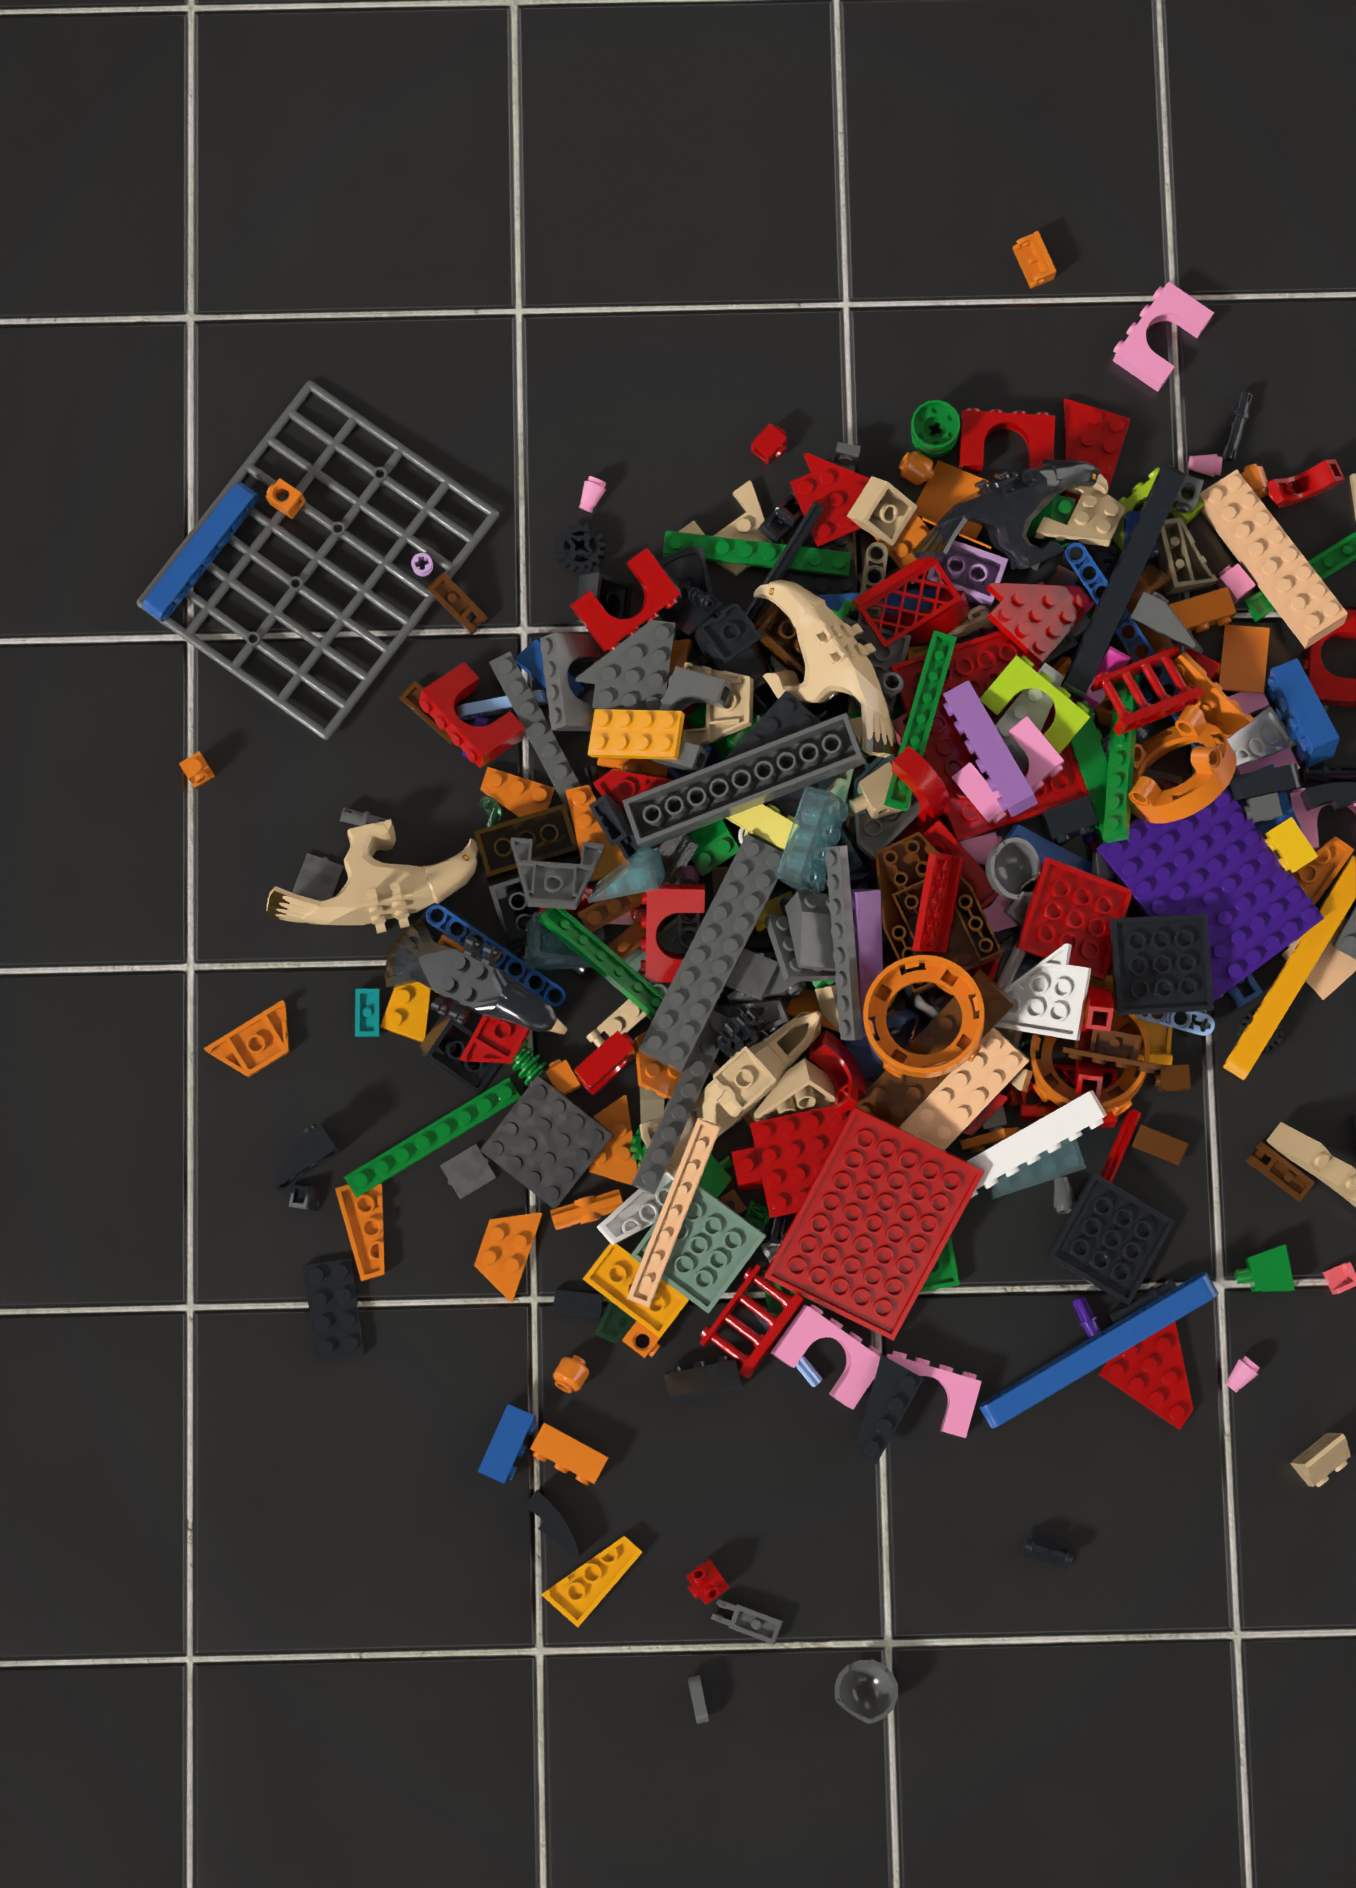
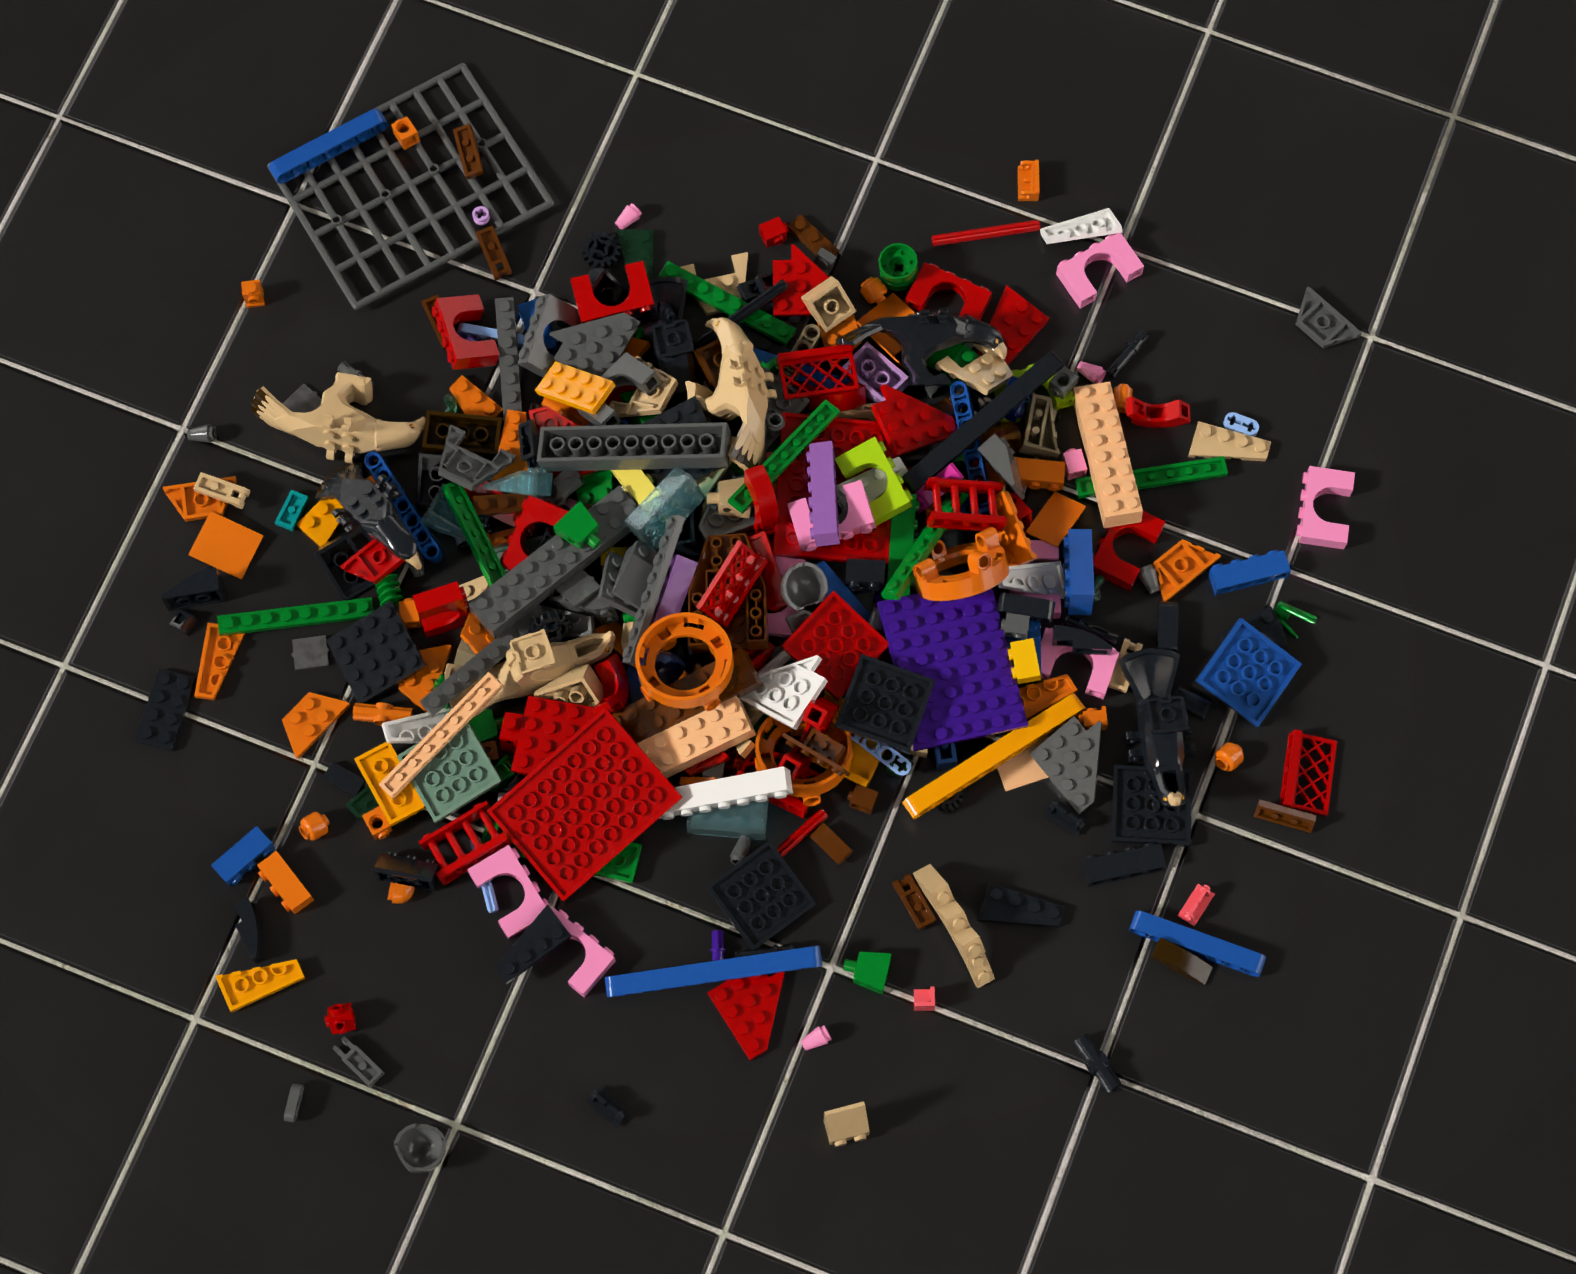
camera: 25 degrees right, 10 degrees down
(219, 964) = (202, 434): none -> dark grey cone
(276, 1024) = (221, 490): none -> tan plate
(310, 1086) = (226, 545): none -> orange piece
(371, 491) = (468, 151): none -> reddish brown plate
(620, 531) = (637, 246): none -> clear green wing
(703, 1408) = (400, 893): none -> orange piece
(728, 907) = (578, 527): none -> green torso
(815, 431) = (810, 236): none -> reddish brown plate
(1012, 343) = (987, 232): none -> red axle
(1127, 288) = (1086, 226): none -> white wing

